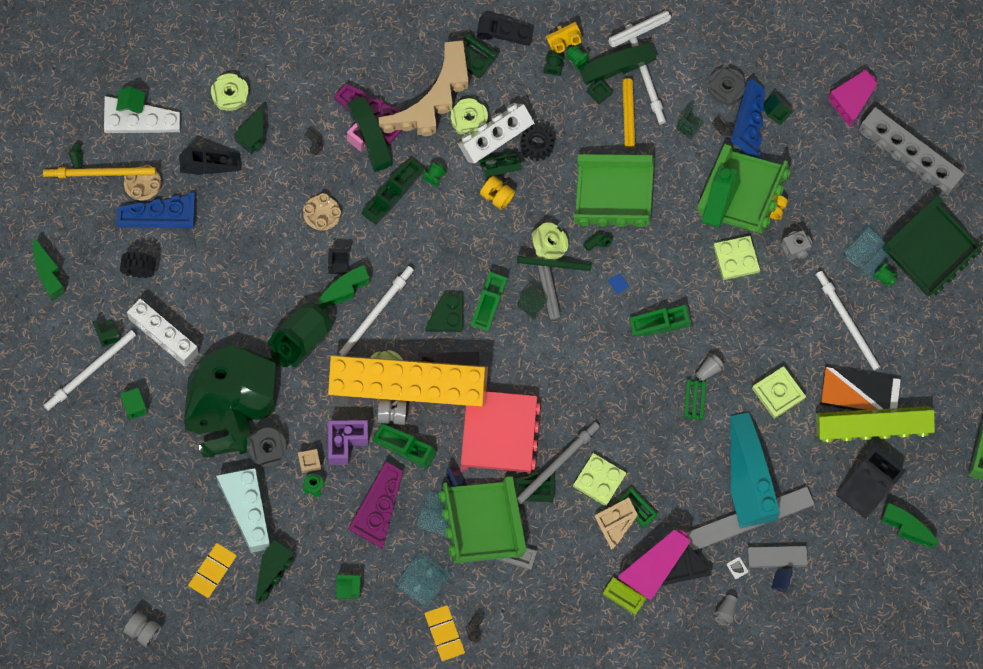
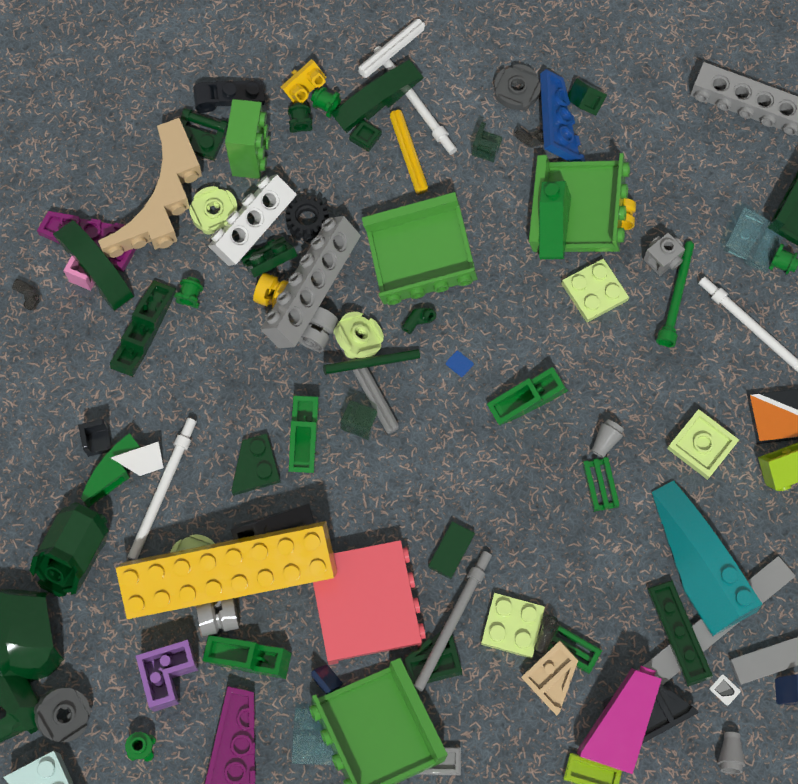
camera: 10 degrees left, 0 degrees up
(309, 461) = (125, 716): tan tile -> none
(321, 212) = (59, 380): tan dish -> none
(367, 287) = (141, 460): none -> white sticker
(509, 71) = (247, 139): none -> bright green brick
(522, 225) = (317, 331): none -> light grey wheel
(526, 192) = (310, 282): none -> light grey brick
(571, 415) = (451, 550): none -> dark green tile
(624, 488) = (549, 627): none -> clear smoke arm
(716, 518) = (679, 633): none -> dark green tile
(779, 307) = (667, 335): none -> green piece
(852, 96) = (671, 58): dark pink slope -> none

